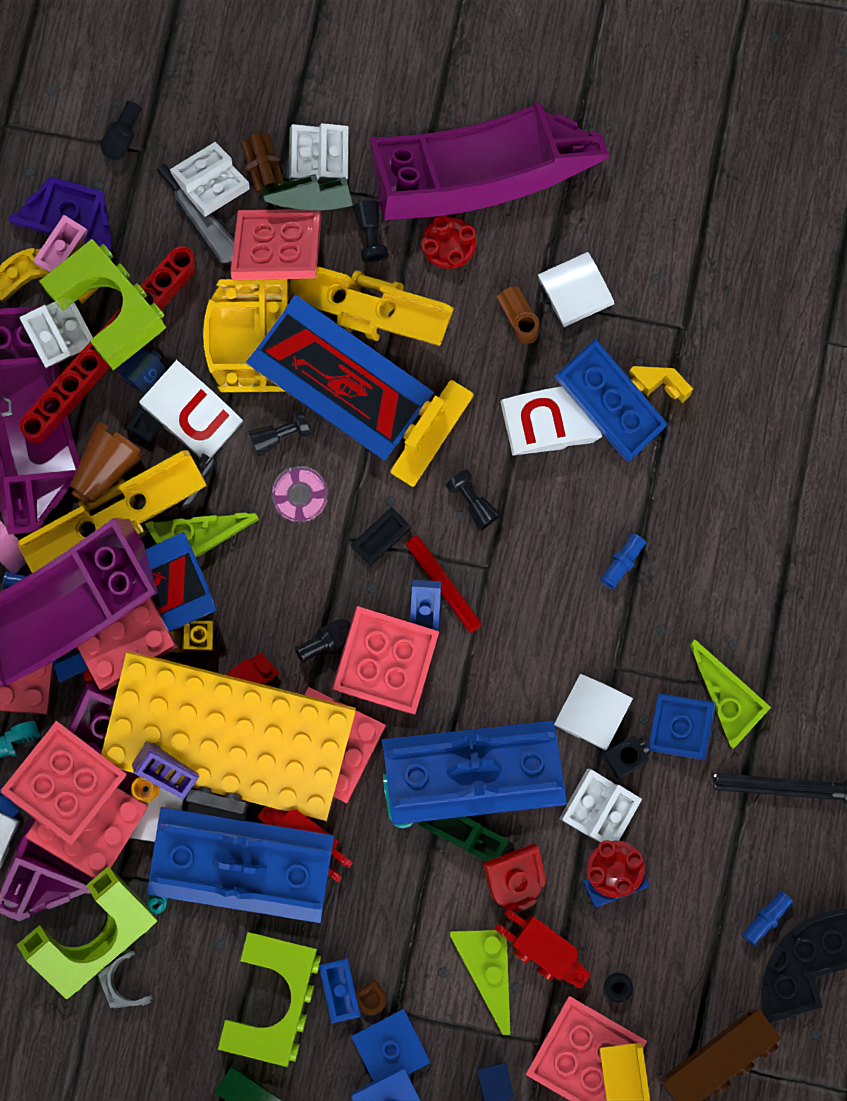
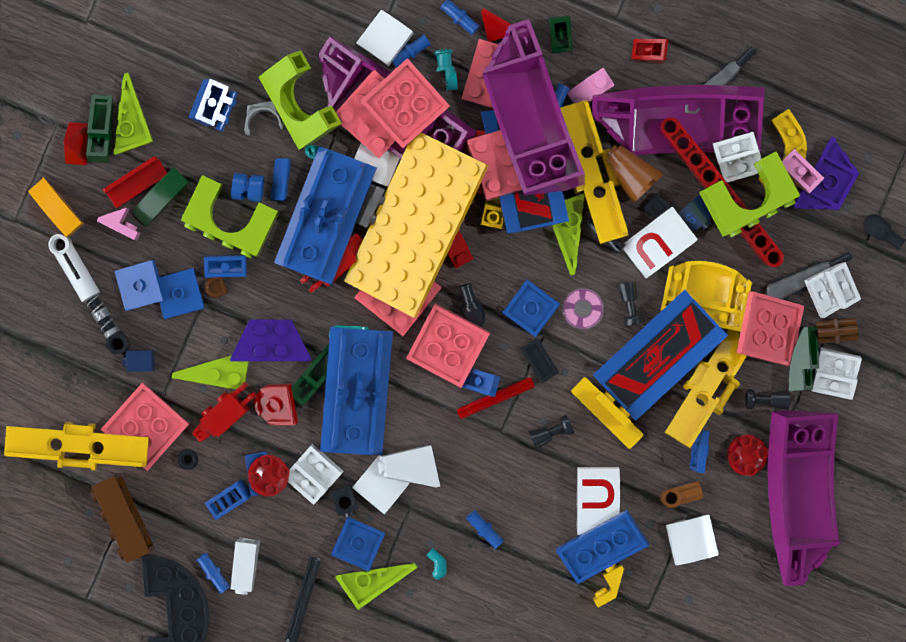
camera: 100 degrees right, 10 degrees up
(117, 1061) = (209, 102): none -> blue brick
(138, 790) = (391, 153): light orange plate -> none
(159, 756) = (408, 165): dark purple slope -> none
(204, 939) = (280, 179): none -> blue slope
(223, 982) = (247, 187): none -> blue wheel
(312, 561) = (531, 308): none -> blue plate
(431, 905) = (270, 343): none -> dark purple wing
(464, 299) = (700, 452): none -> blue plate
(559, 675) = (411, 465): none -> white slope
(643, 901) = (243, 491): none -> blue slope
(683, 611) = (440, 564): none -> teal arm
(746, 875) = (244, 565): none -> white slope

